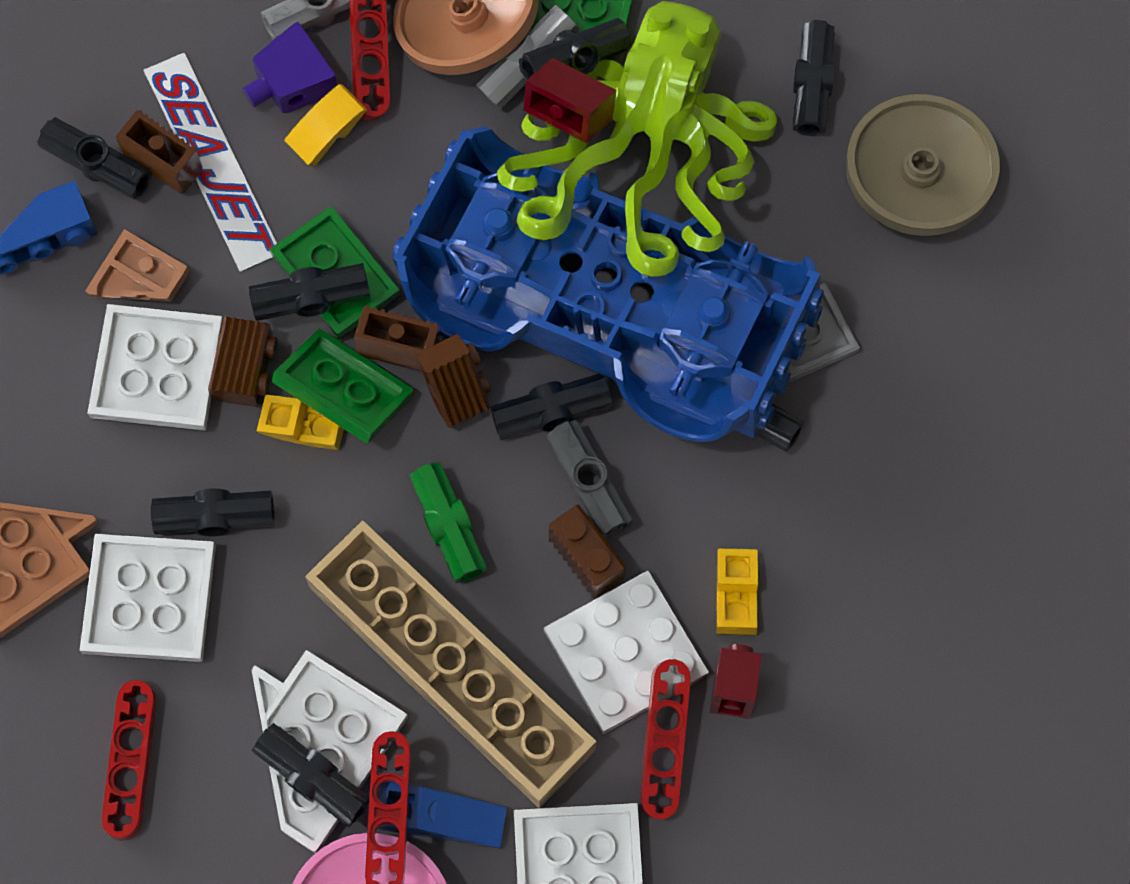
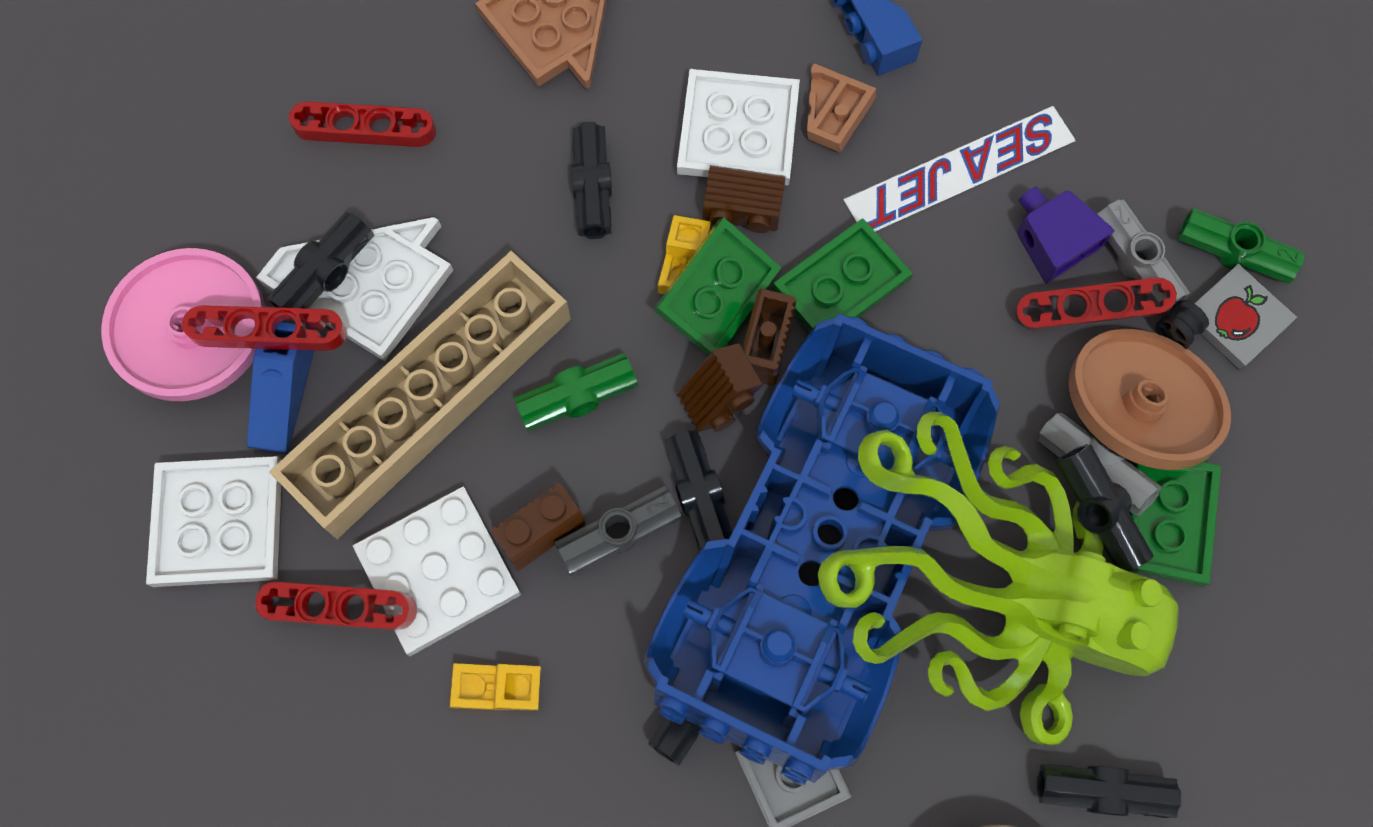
camera: 90 degrees right, 0 degrees up
(77, 147) = (944, 76): black piece -> none
(148, 598) = (511, 131): white plate -> none
(160, 151) = (959, 113): reddish brown brick -> none
(309, 292) = (813, 250): black piece -> none
(328, 120) = (1005, 265): yellow slope -> none
(569, 100) = (1035, 491): dark red brick -> none
(735, 681) = (381, 677): dark red brick -> none

